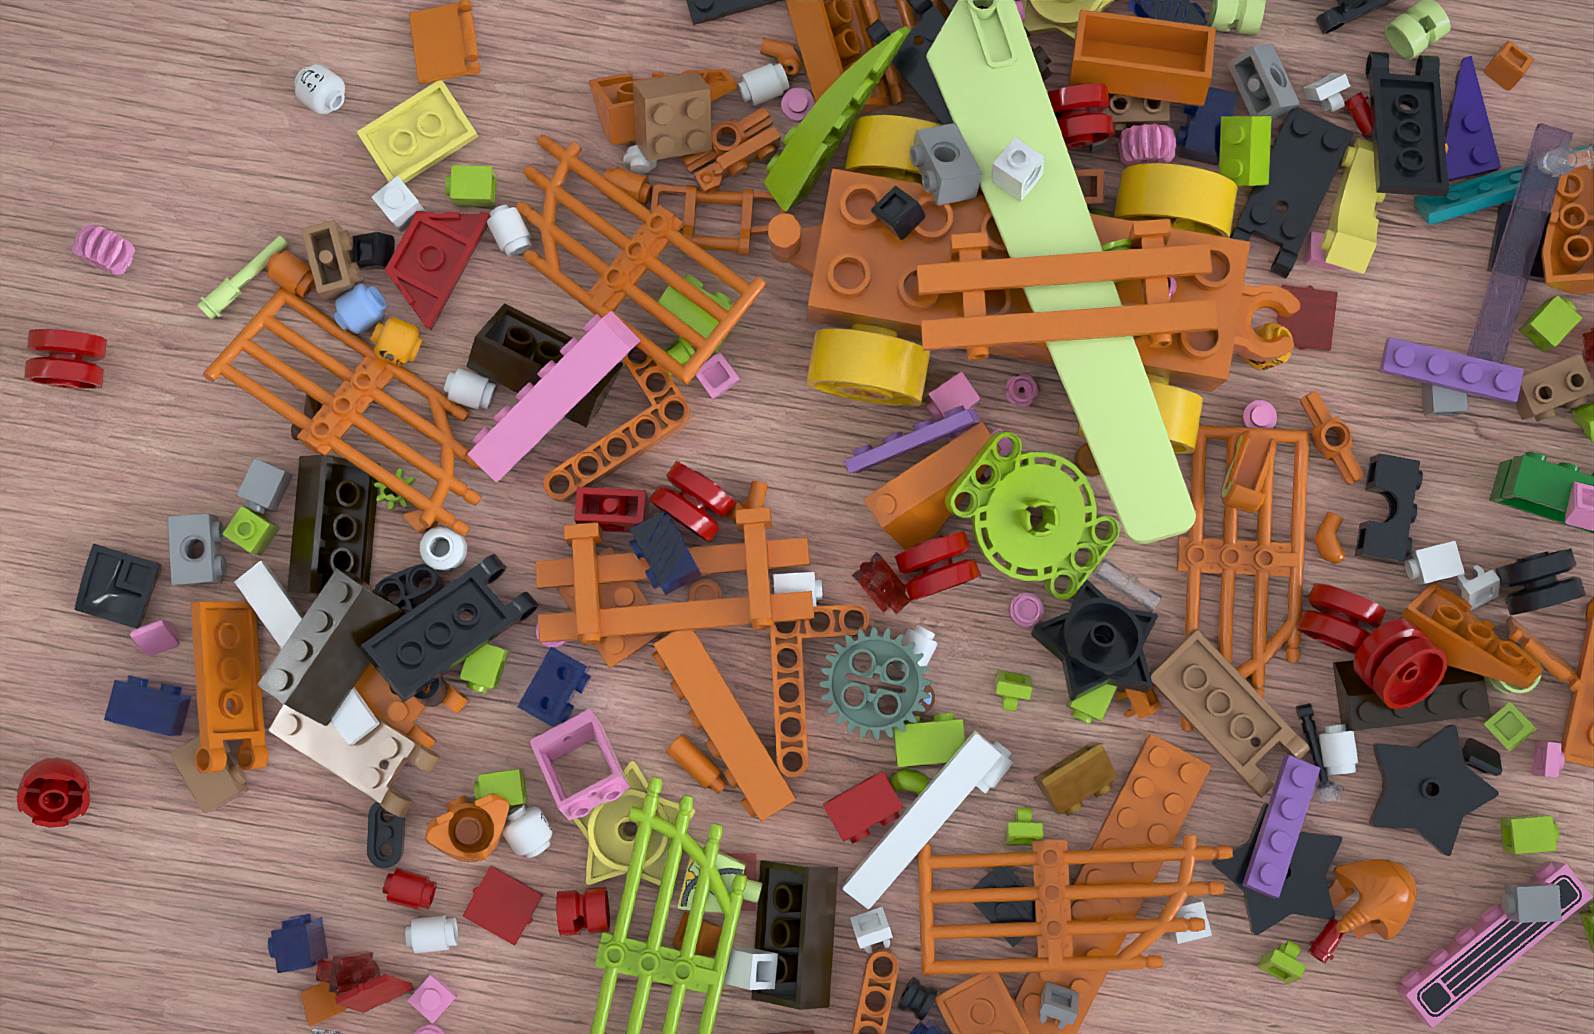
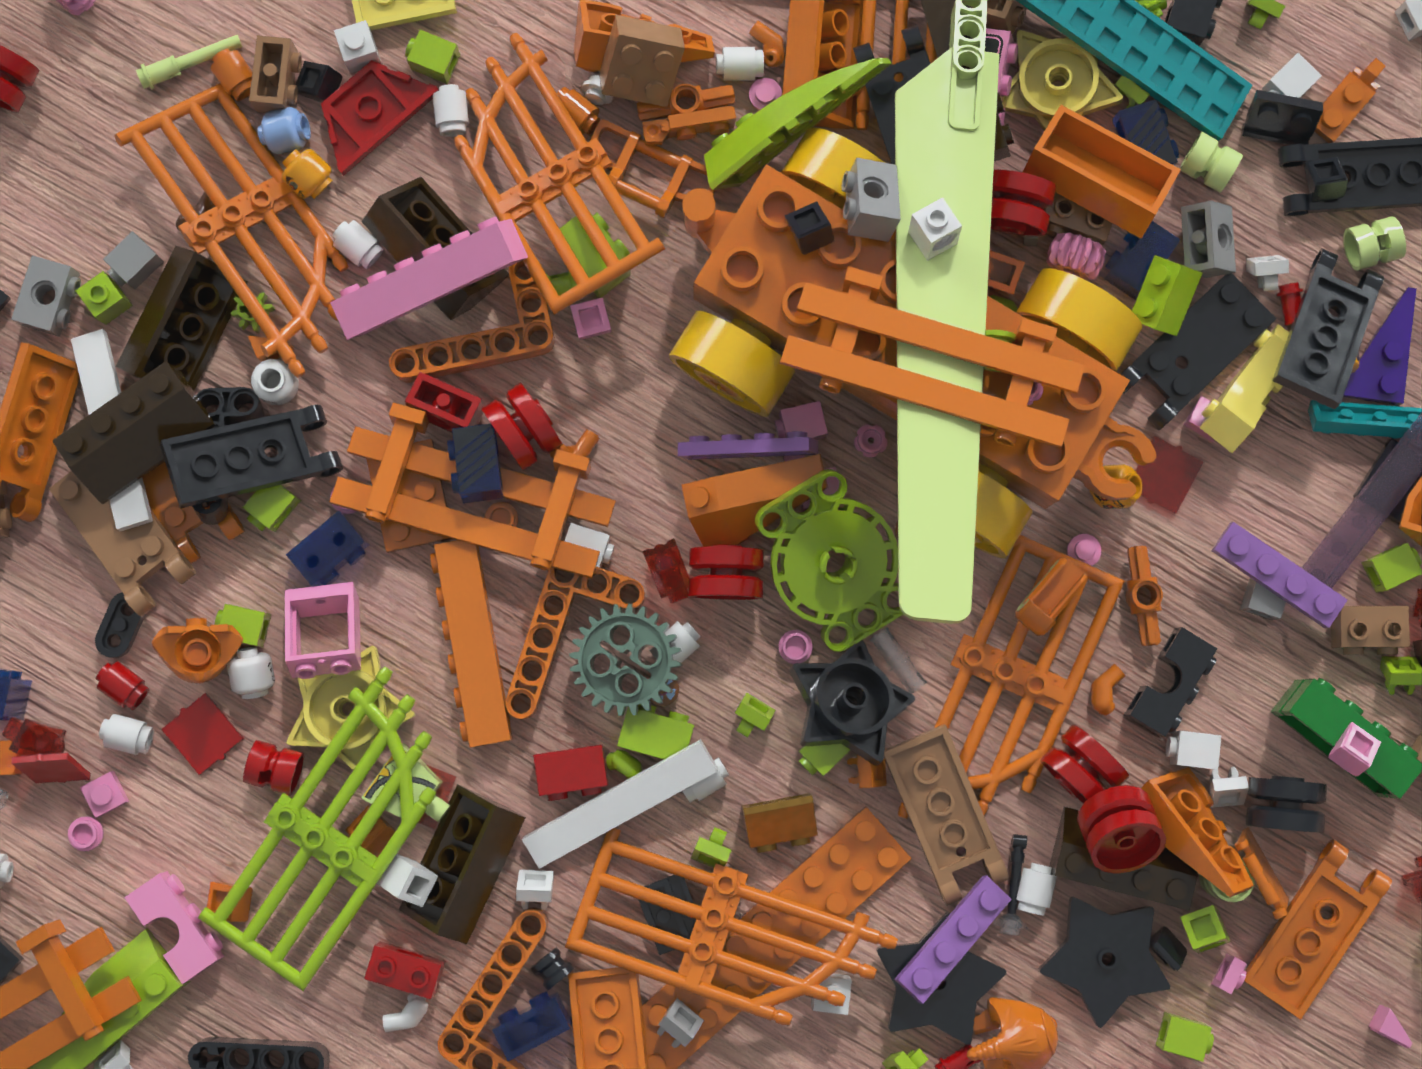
camera: 15 degrees right, 0 degrees up
(696, 764) = (432, 671): orange cylinder -> none

